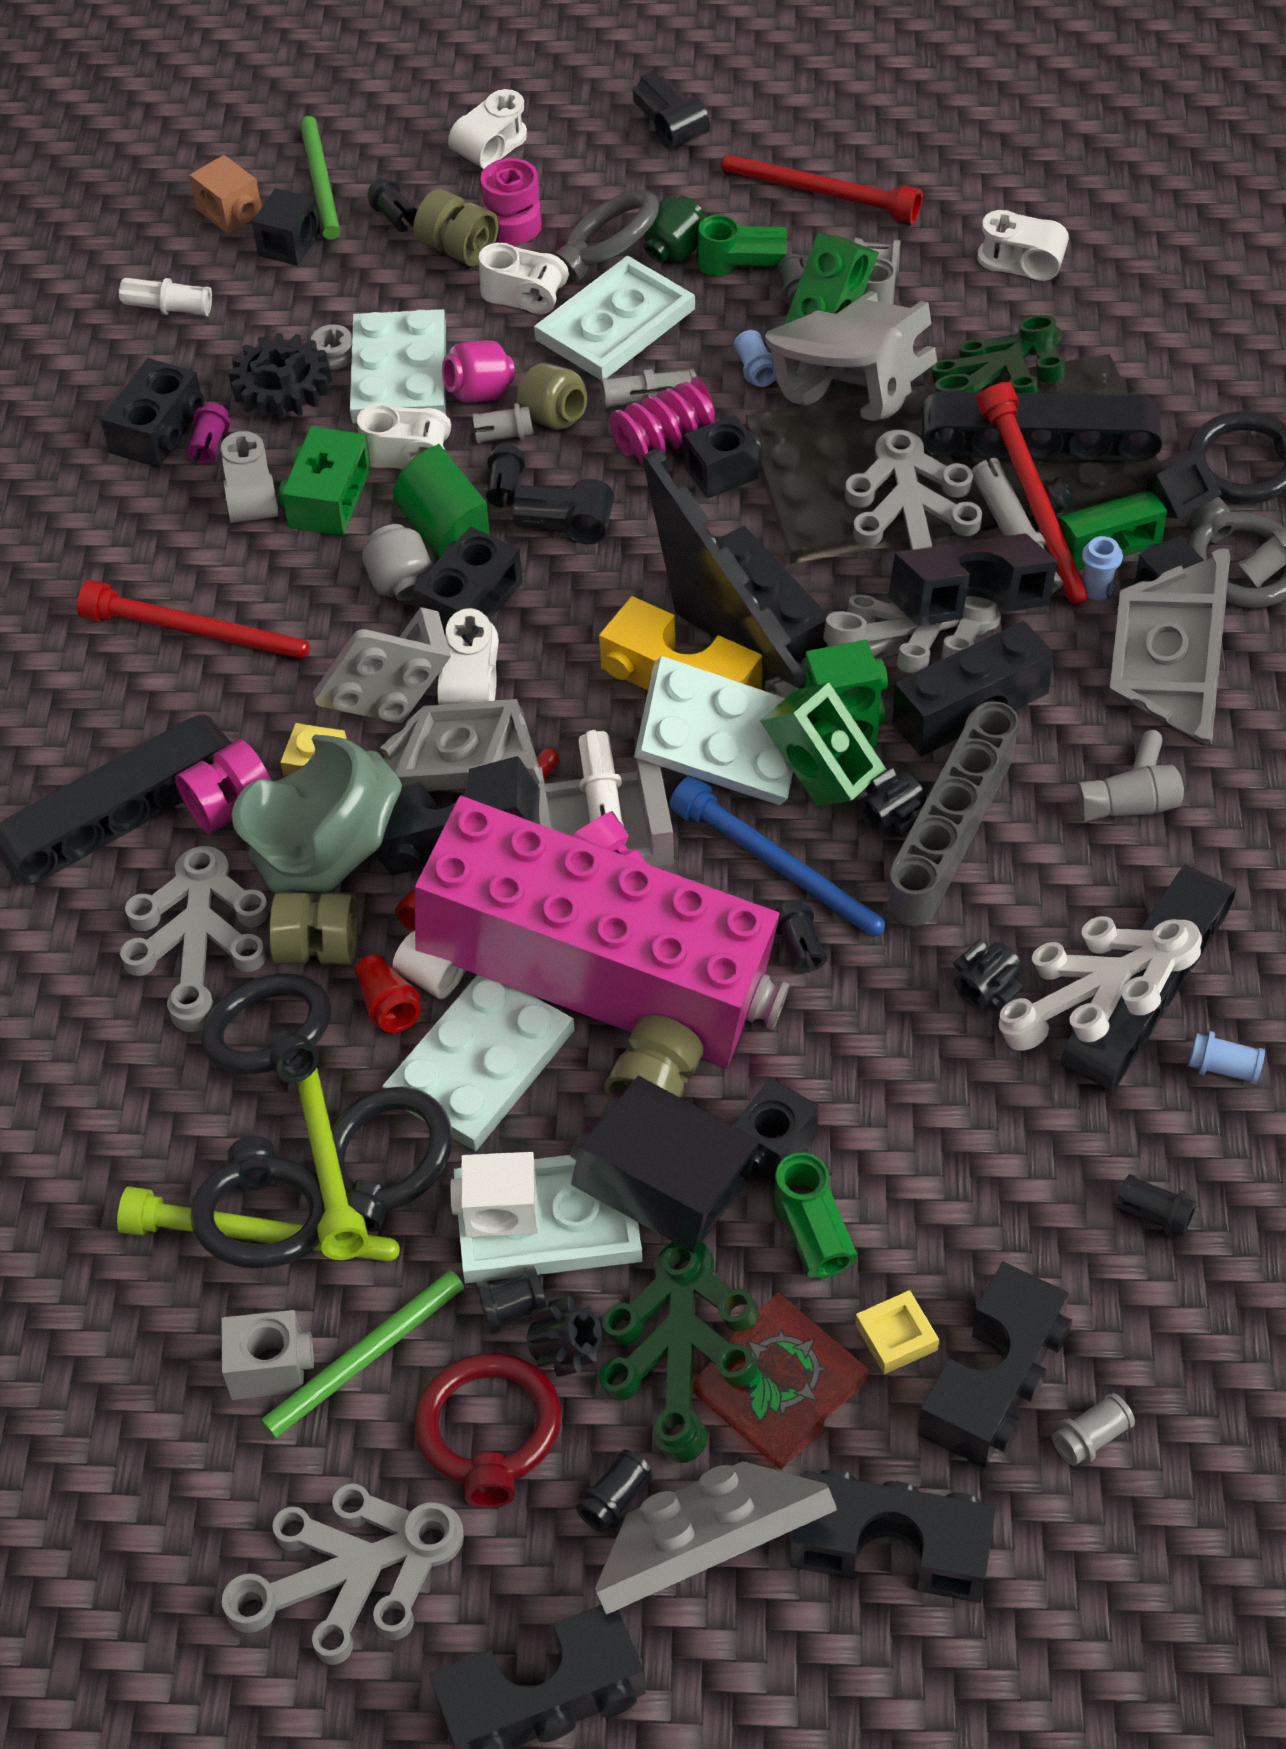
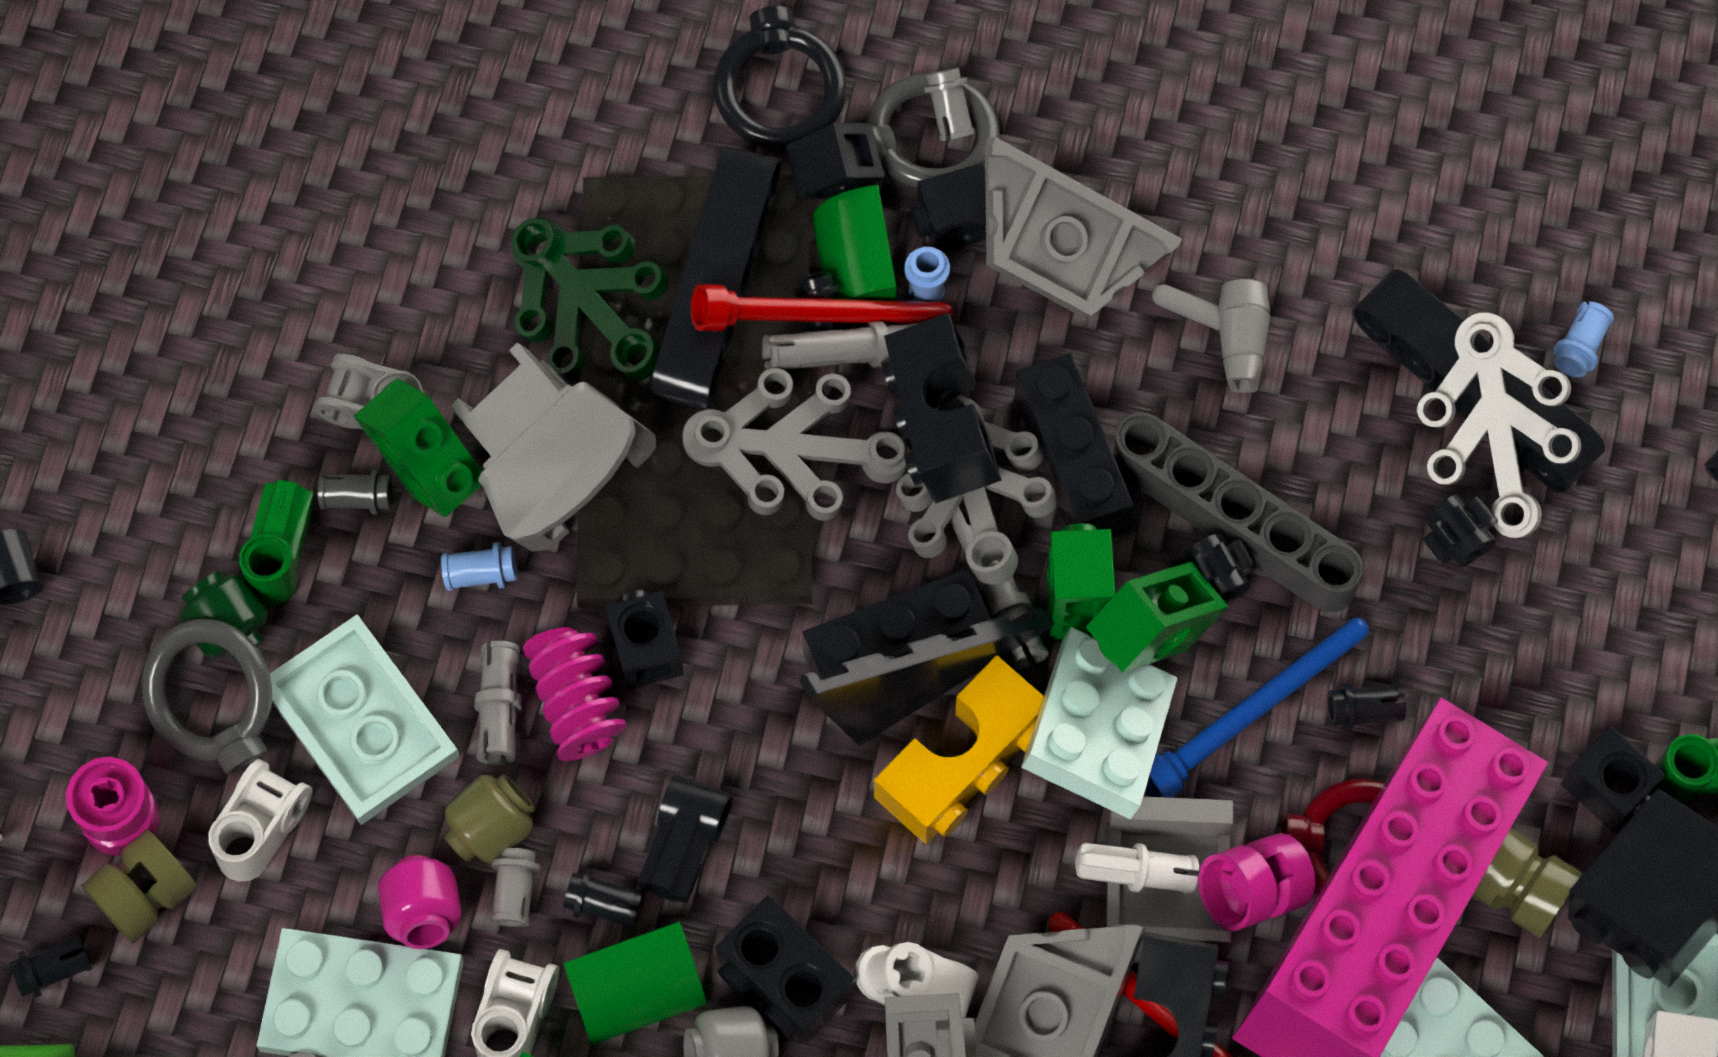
camera: 80 degrees left, 15 degrees up
(901, 203) = (248, 338): red piece -> none
(1026, 248) = (375, 222): white piece -> none

